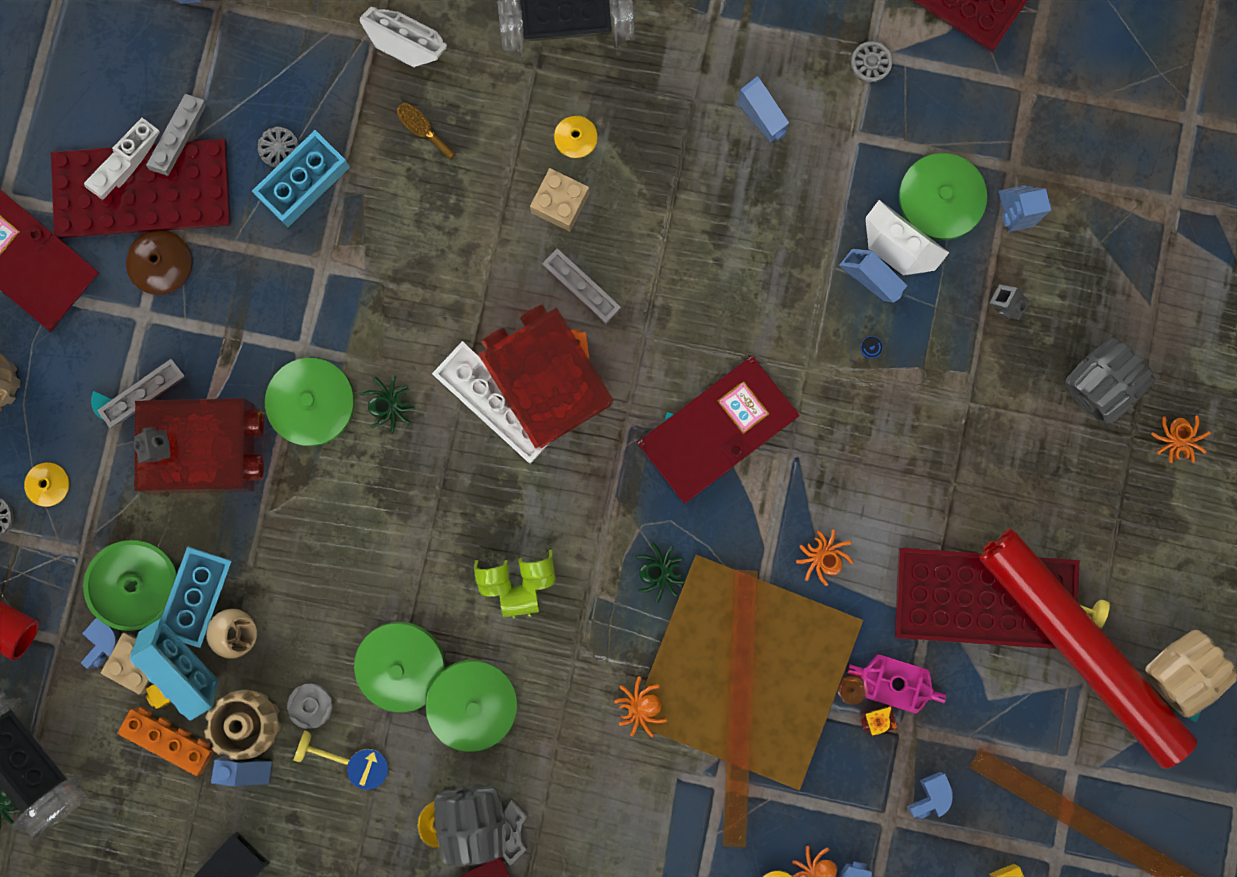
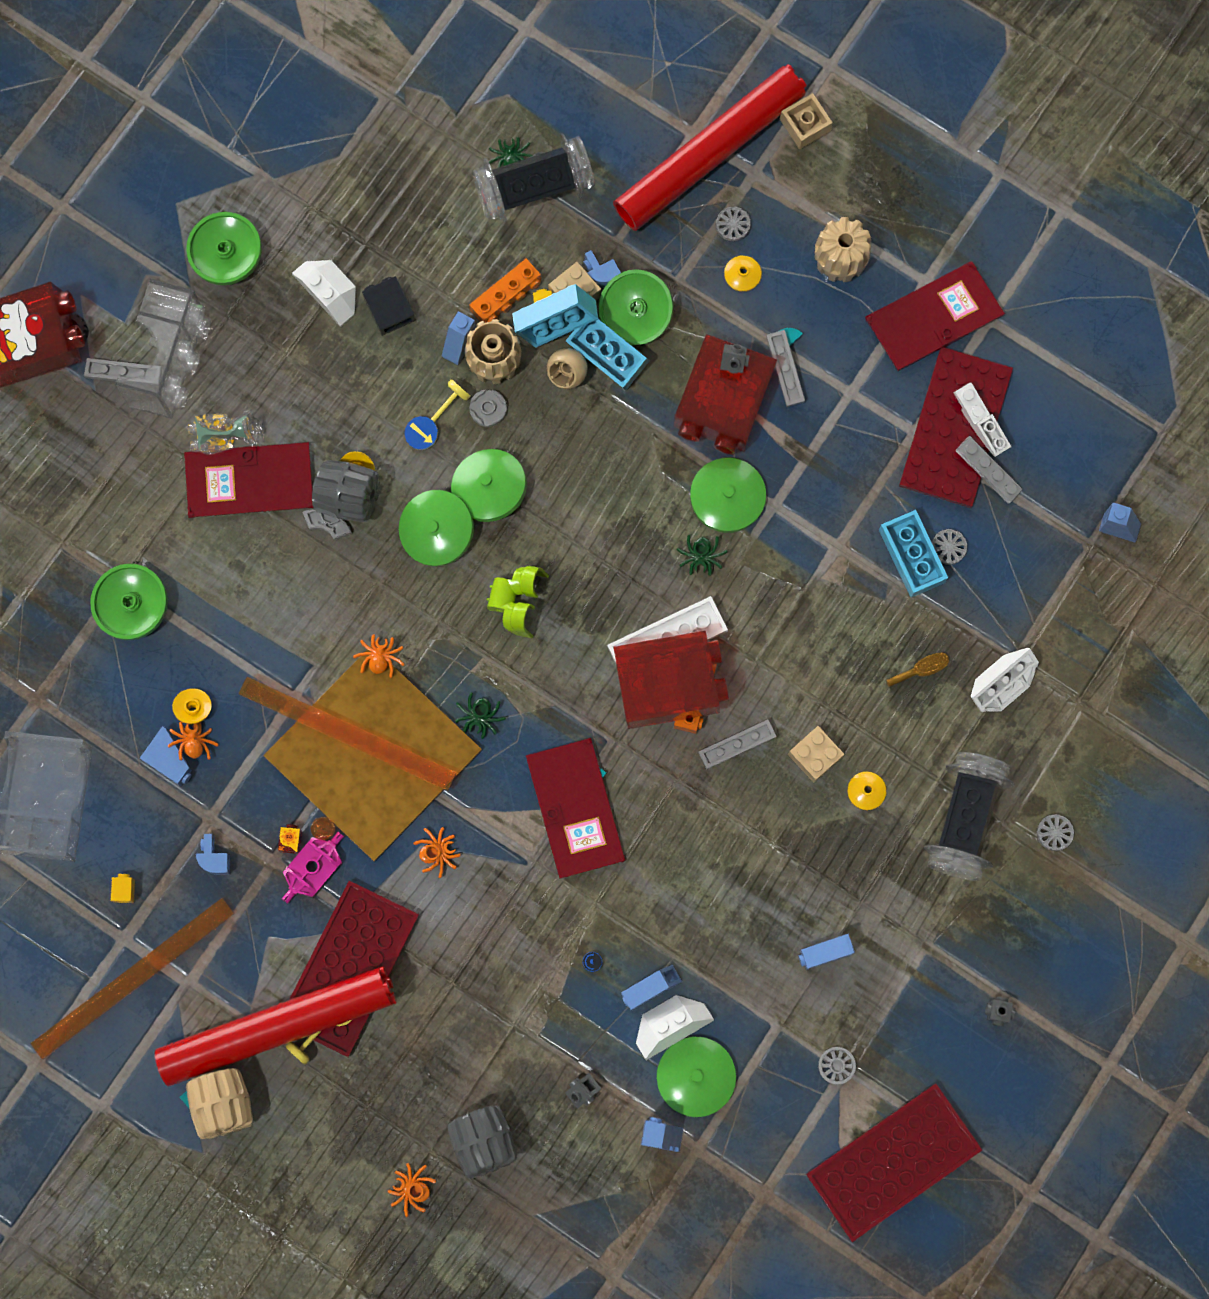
camera: 110 degrees right, 5 degrees down
(168, 271) = (888, 431): reddish brown dish -> none

